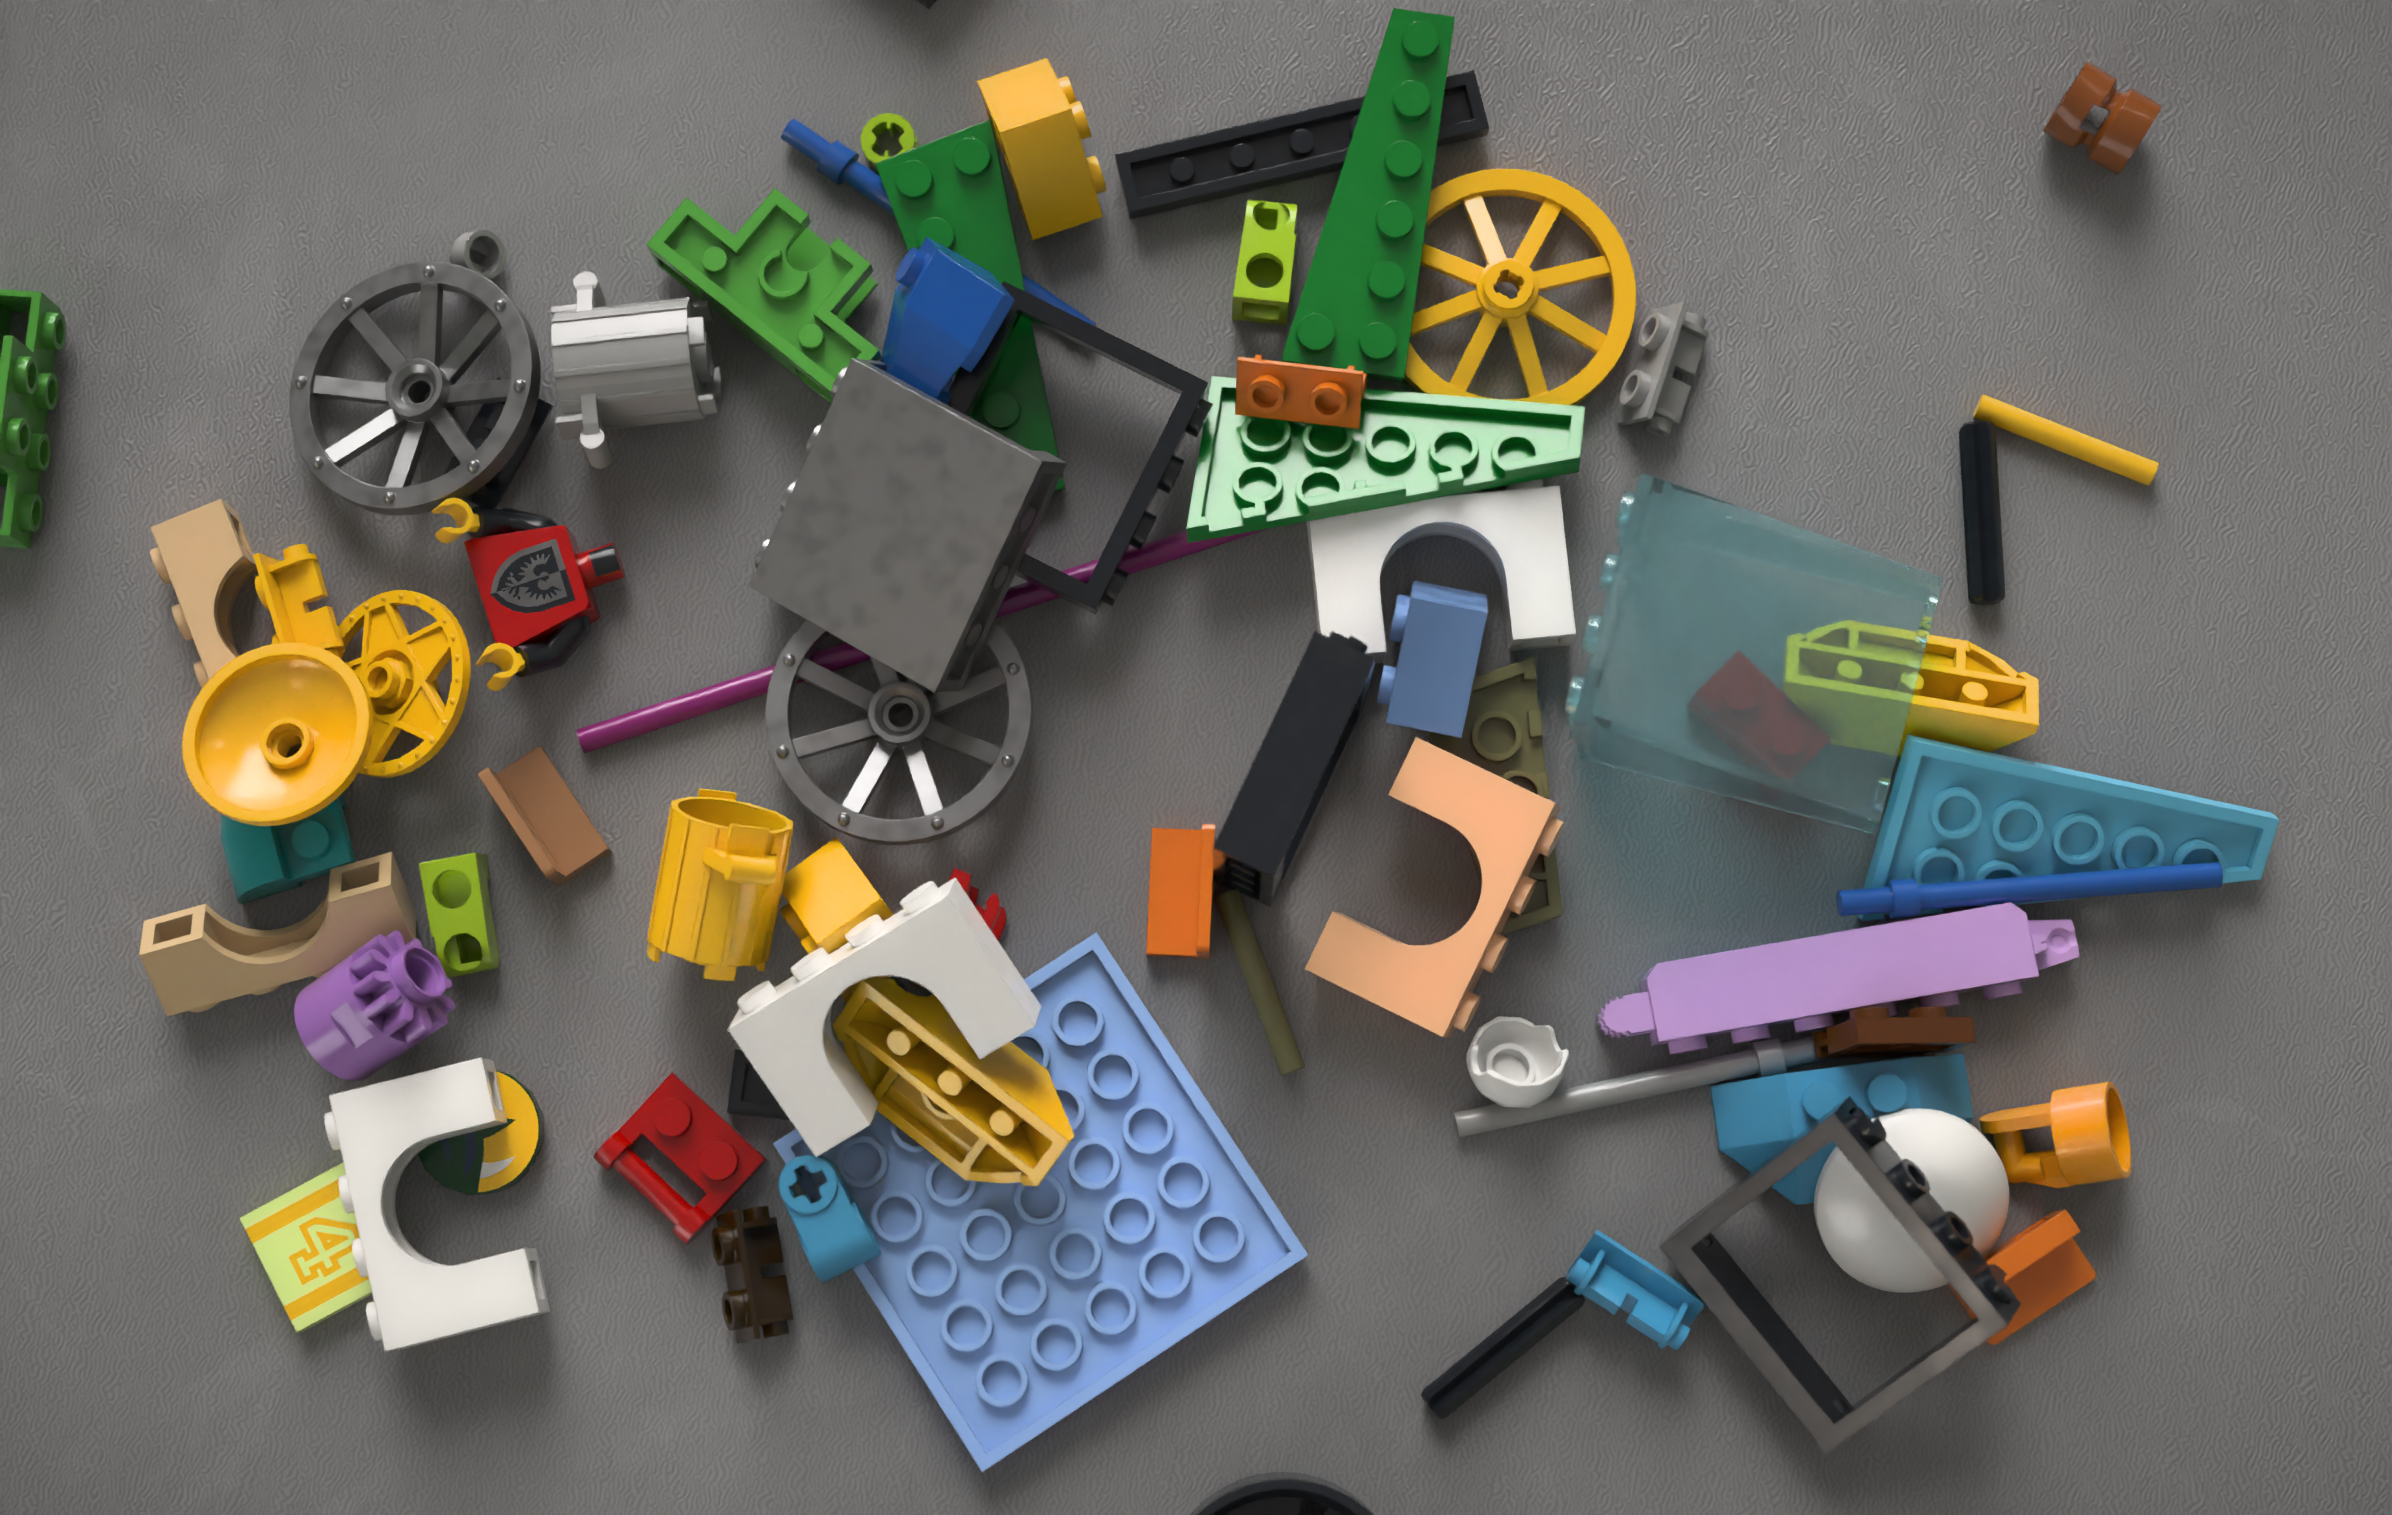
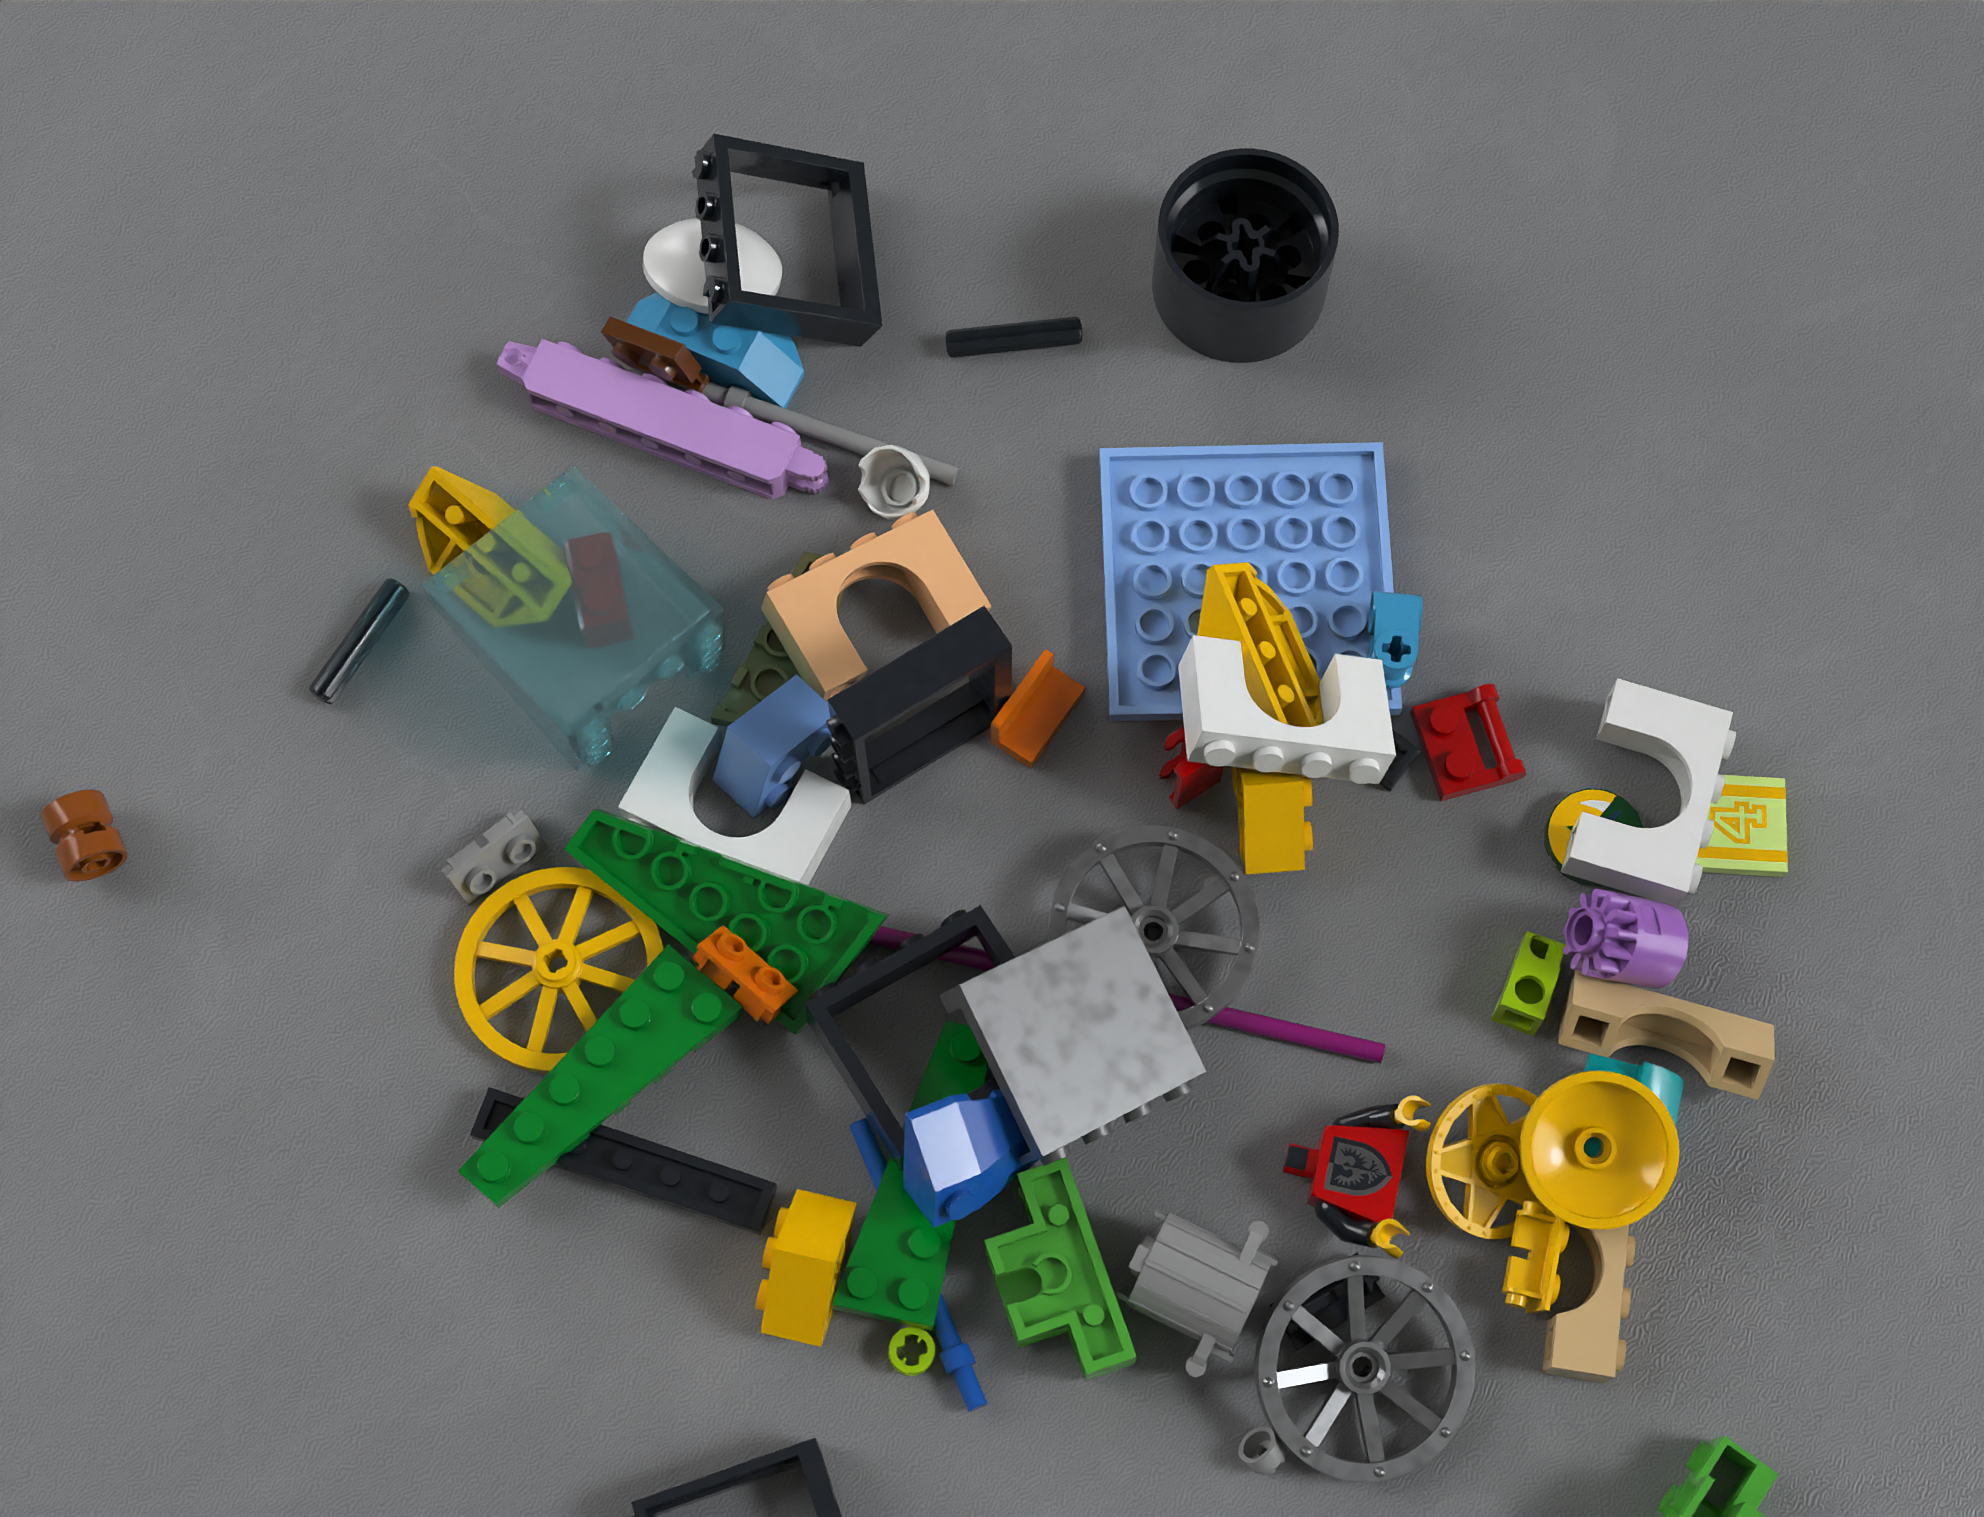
camera: 150 degrees left, 10 degrees down
(546, 816) = (1436, 1014): medium nougat panel -> none
(719, 883) = (1342, 879): yellow container -> none
(742, 1252) = (1469, 624): dark brown hinge -> none
(1259, 982) = (1025, 620): olive bar -> none
(1265, 263) = (702, 1093): lime leg -> none
(1623, 1280) = (922, 332): dark azure hinge -> none
(1906, 898) = (585, 430): blue bar -> none
(2002, 816) = (474, 425): medium azure wing -> none
(2040, 1269) = (661, 201): orange panel -> none
(2066, 440) = (271, 655): yellow bar -> none
(2087, 1137) = (577, 249): light orange piece -> none

